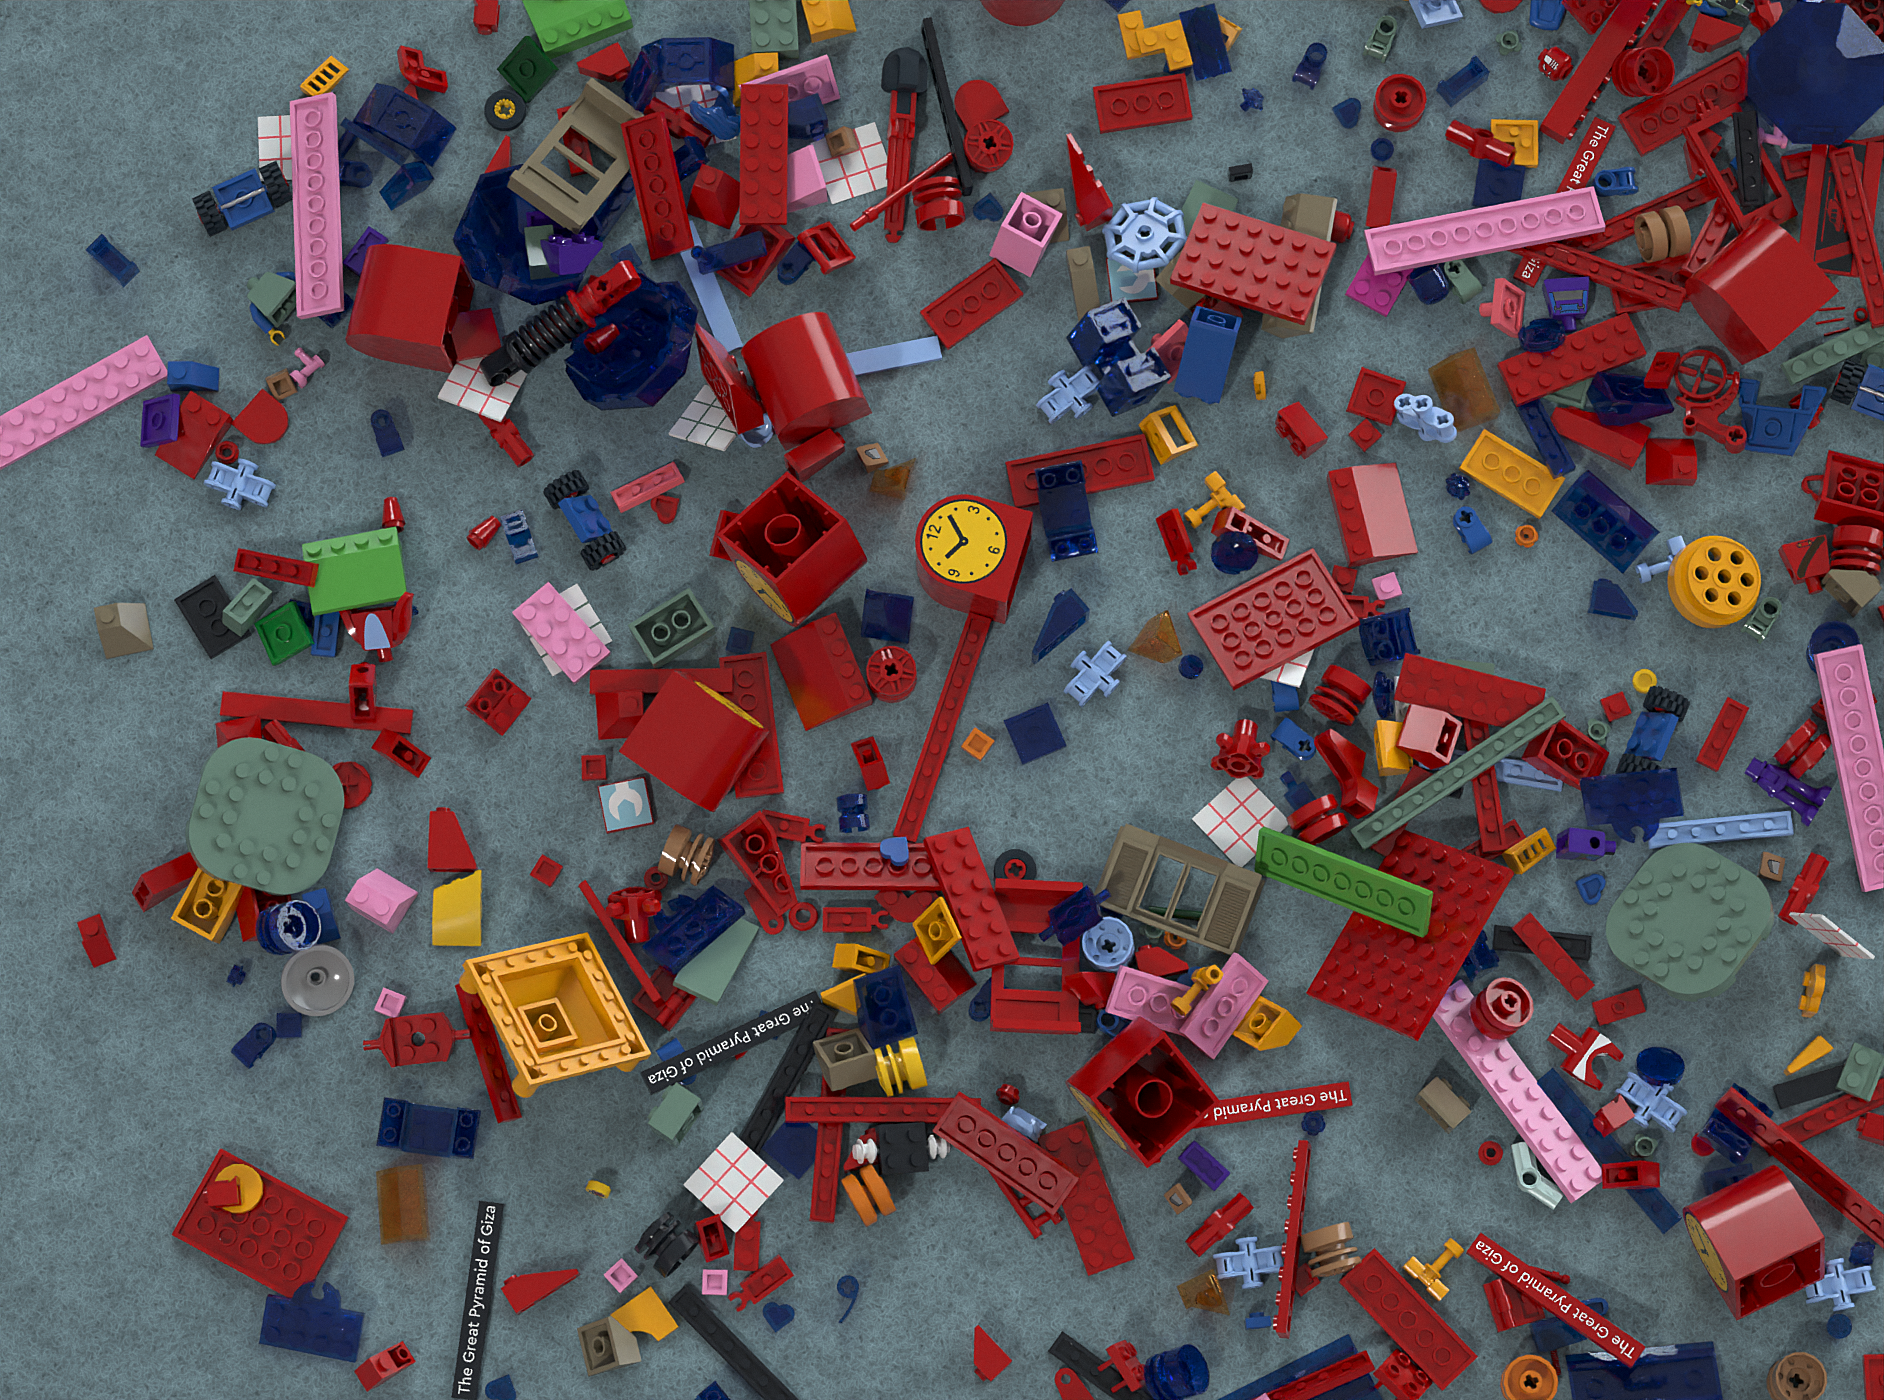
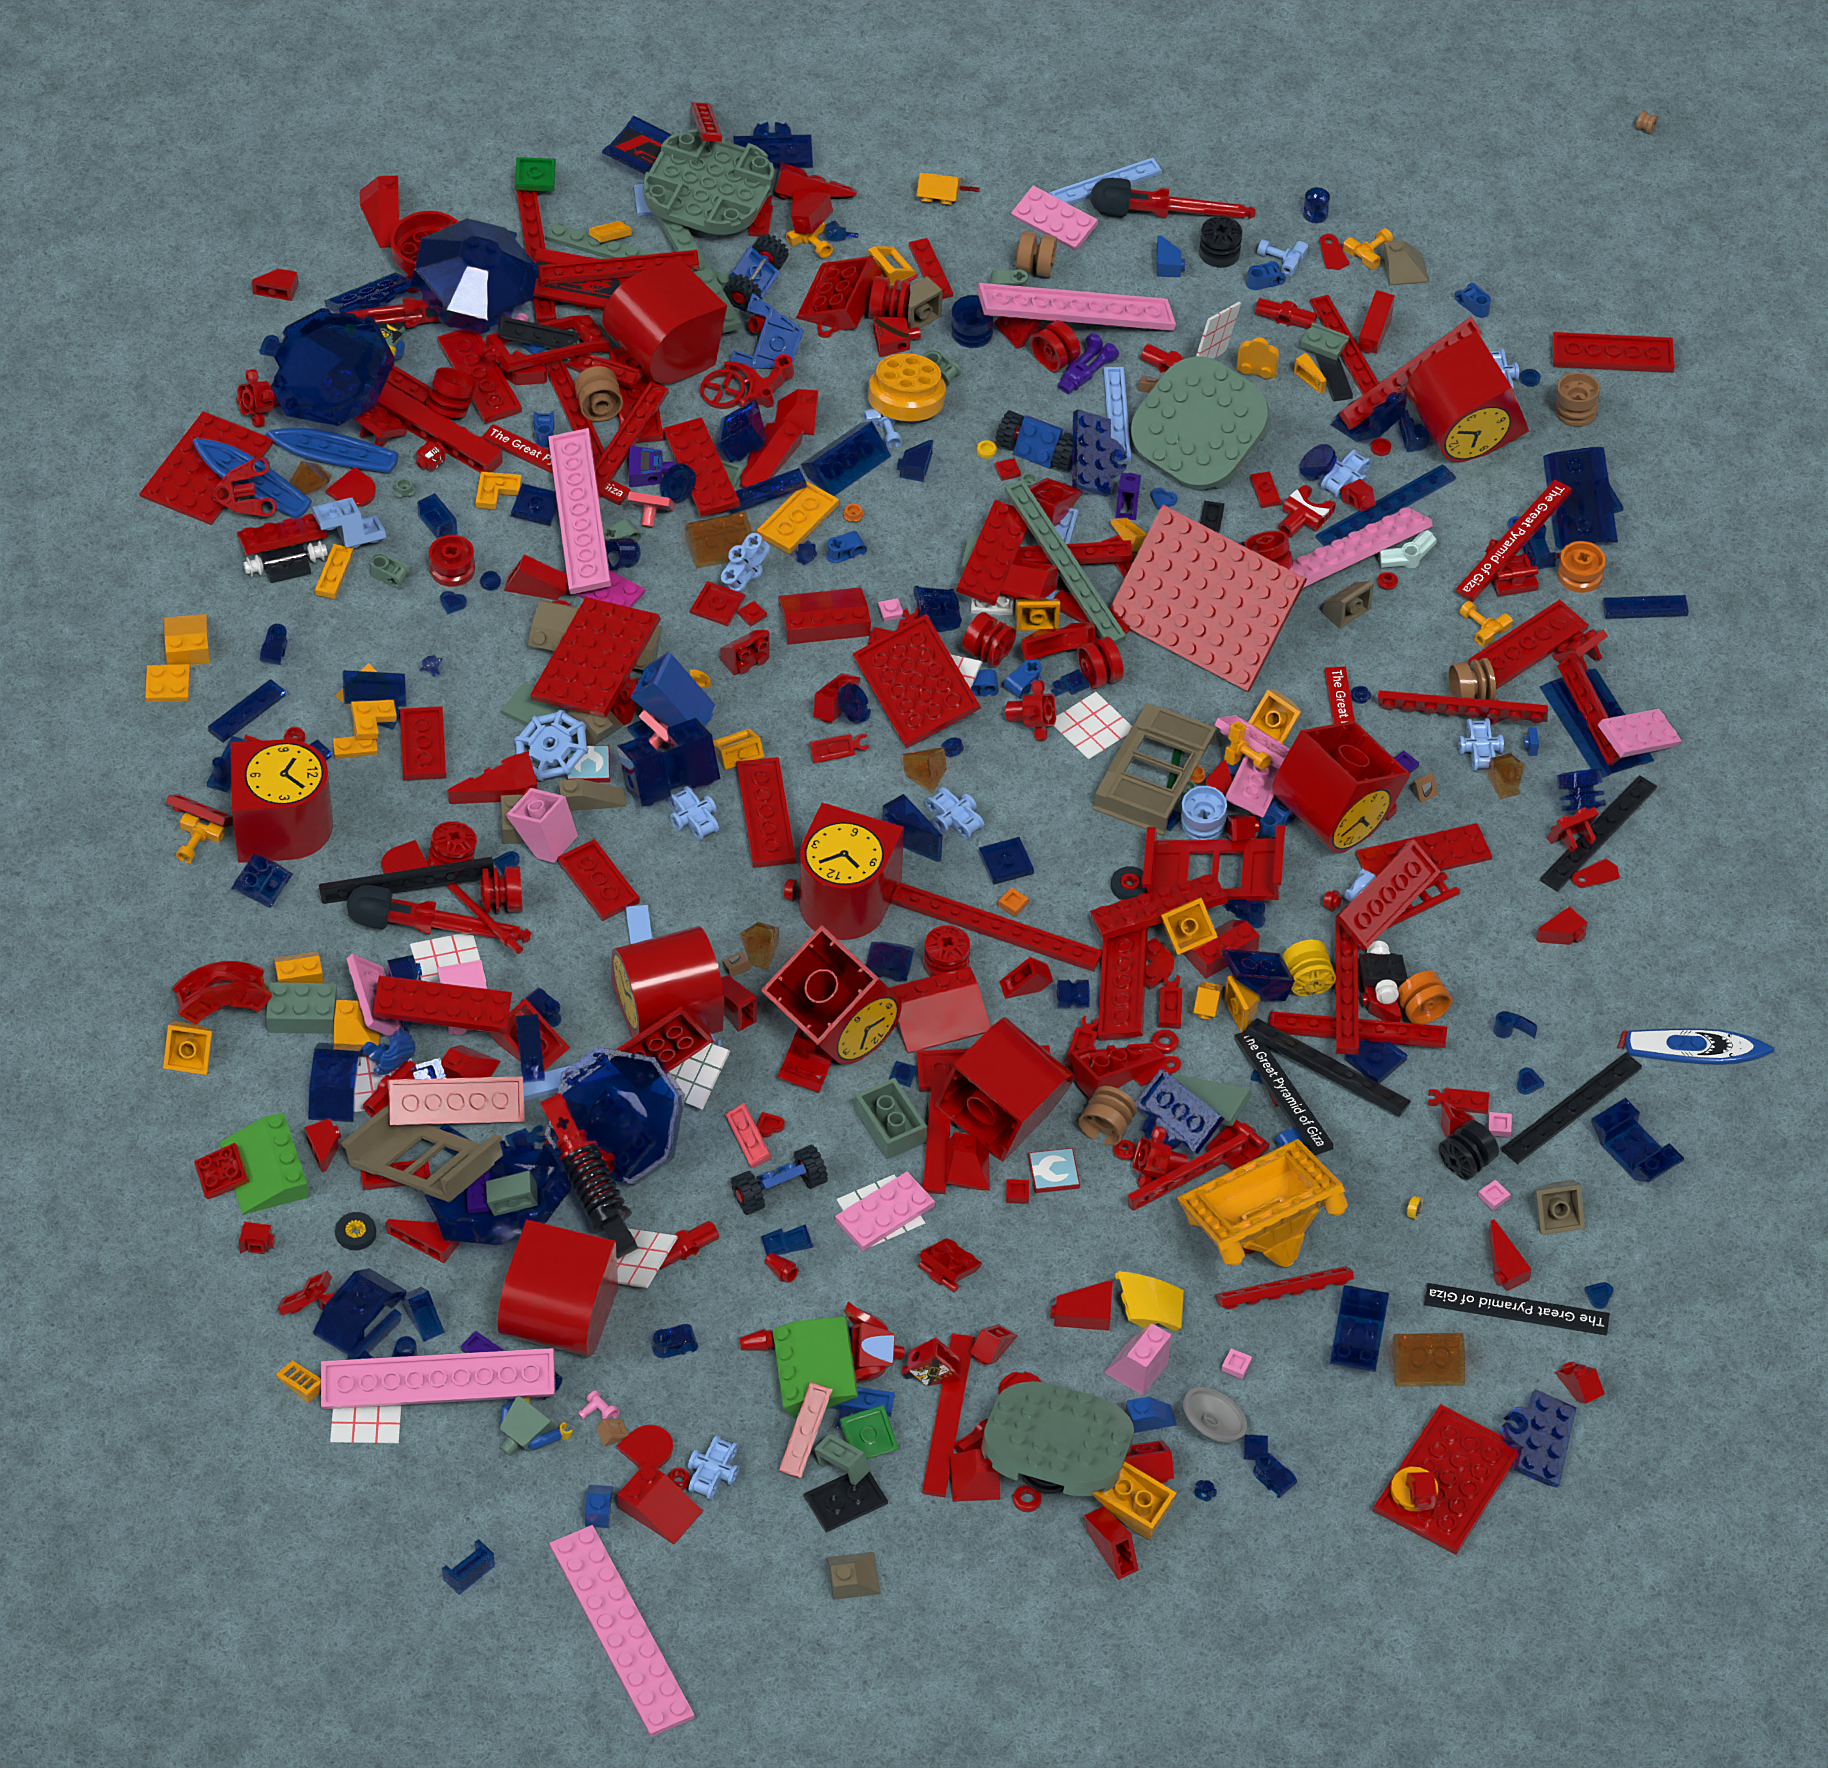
camera: 90 degrees left, 25 degrees down
(96, 940) = (1166, 1609): red slope -> none
(160, 420) = (643, 1528): dark purple tile -> none
(243, 199) = (420, 1446): plate -> none
(288, 927) = (1167, 1423): clear blue wheel -> none
(398, 1044) = (1274, 1323): red plate -> none
(527, 69) = (319, 1204): dark green plate -> none
(546, 871) = (1114, 1233): red plate -> none
(570, 253) = (522, 1155): dark purple slope -> none
(643, 78) = (347, 1104): clear blue plate -> none
(646, 1315) = (1528, 1178): light orange tile -> none
(675, 1114) = (1353, 1129): sand green brick -> none
(733, 1182) = (1409, 1101): white piece -> none
(762, 1282) = (1500, 1089): red plate -> none
(831, 245) = (532, 980): red plate -> none
(841, 141) = (428, 966): medium nougat slope -> none
(845, 1059) = (1300, 1007): dark tan slope -> none
(895, 850) = (1110, 961): blue tile -> none
(1065, 510) = (791, 818): clear blue slope -> none
(1075, 915) = (1179, 827): clear blue plate -> none
(1219, 497) = (801, 715): light orange bar -> none
(1219, 1224) = (1448, 762): red piece -> none
(1240, 172) = (500, 677): black tile -> none
(1309, 69) = (406, 620): clear blue piece -> none
(1343, 881) = (1159, 636): bright green plate -> none
(1381, 694) = (998, 610): clear blue dish -> none
(1480, 143) = (497, 508): red piece -> none
(1553, 956) = (1232, 518): red plate -> none
(1631, 1175) = (1409, 487): red slope -> none
(1650, 1143) = (1383, 478): sand green plate -> none
(1662, 370) = (718, 407): red plate -> none
(1712, 34) = (418, 354): red slope -> none
(1722, 734) = (1036, 403): red plate -> none

